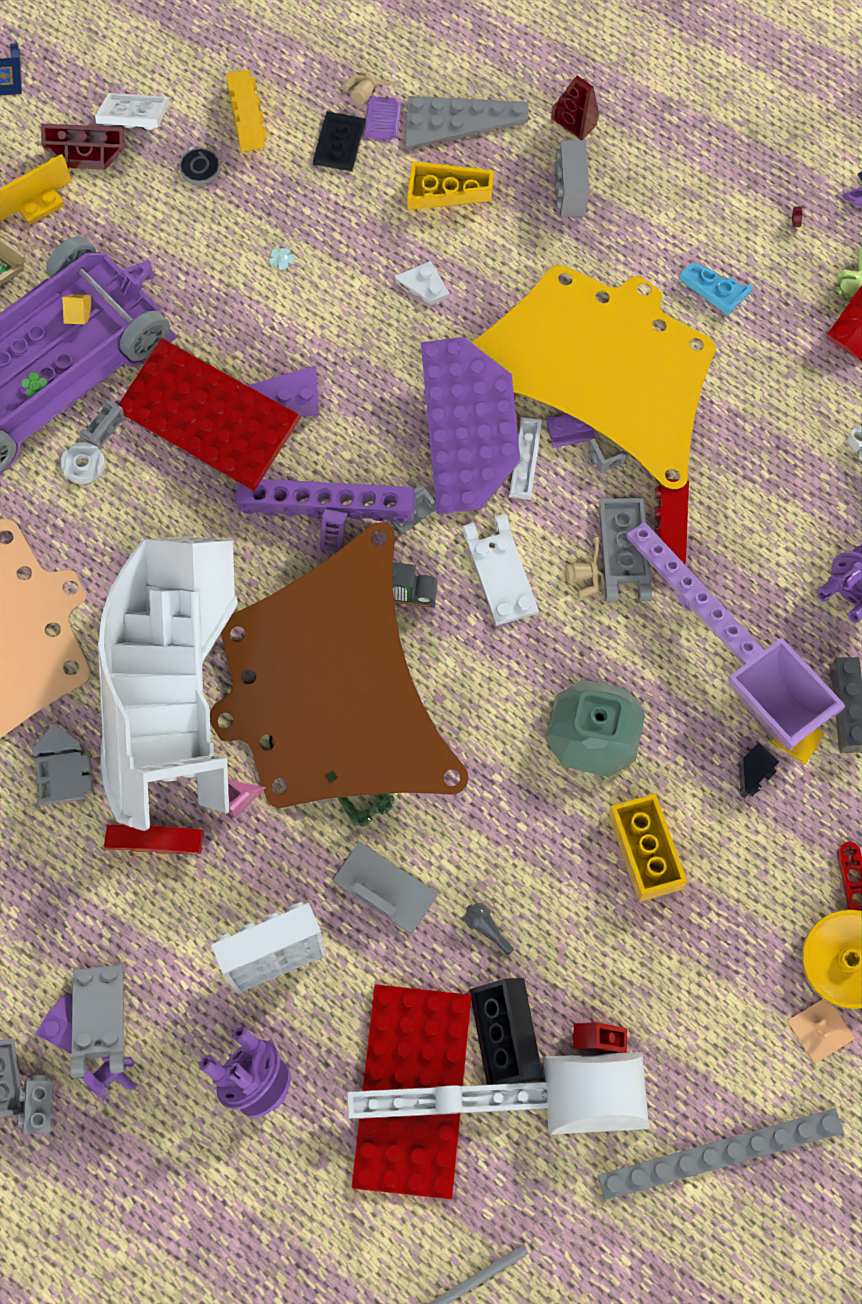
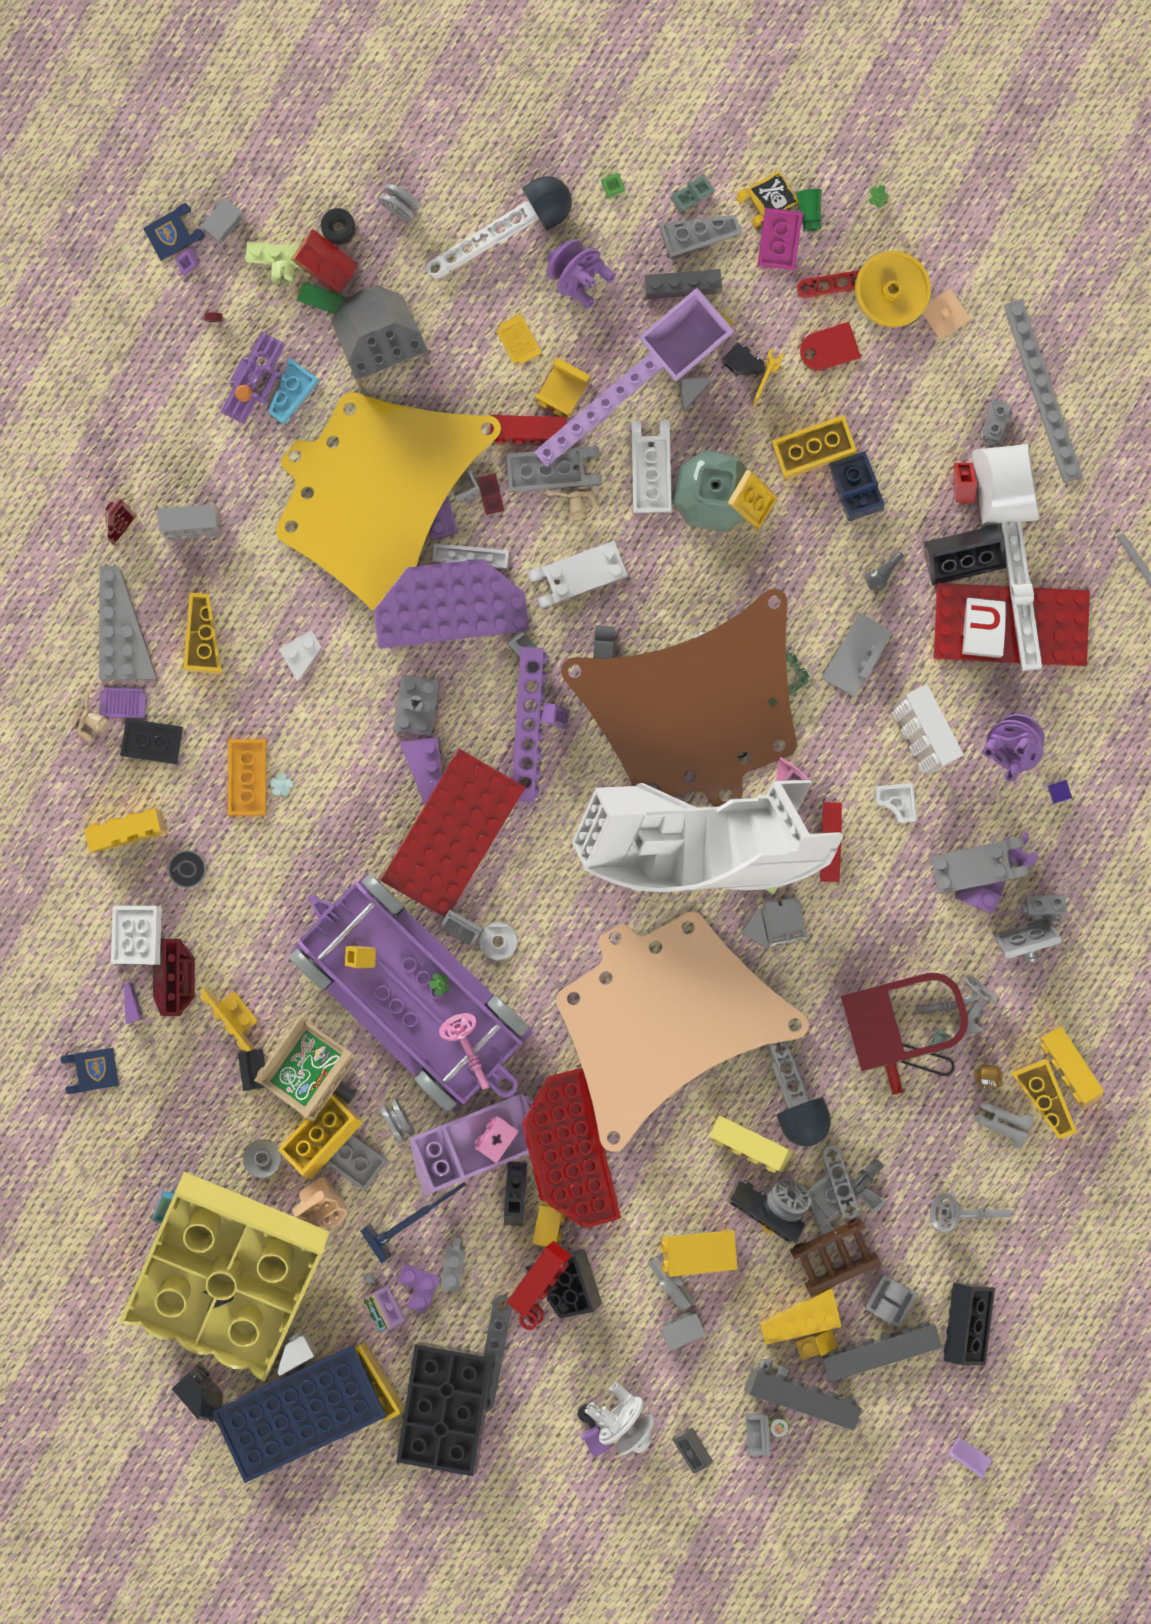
camera: 85 degrees left, 15 degrees up
(63, 107) = (132, 1008): none -> medium lavender slope
(188, 1140) = (1059, 791): none -> dark purple tile
(199, 927) = (899, 800): none -> white tile
(293, 226) = (247, 777): none -> light orange tile
(358, 393) = (416, 705): none -> light grey plate
(408, 1047) = (984, 628): none -> white slope
(581, 765) = (752, 499): none -> yellow tile
(594, 483) = (490, 494): none -> dark red slope
(597, 899) = (857, 486): none -> dark blue slope
(623, 657) = (651, 470): none -> white hinge
(678, 1083) = (995, 423): none -> light grey brick
(718, 707) = (692, 389): none -> light grey slope
(719, 564) = (562, 389): none -> yellow panel
(733, 242) = (246, 376): none -> medium lavender piece
(735, 792) = (770, 362): none -> yellow flag
(774, 880) = (831, 347): none -> red tile
(777, 522) = (518, 340): none -> yellow window
(784, 365) = (377, 332): none -> dark grey windscreen
(818, 328) = (319, 298): none -> green tile

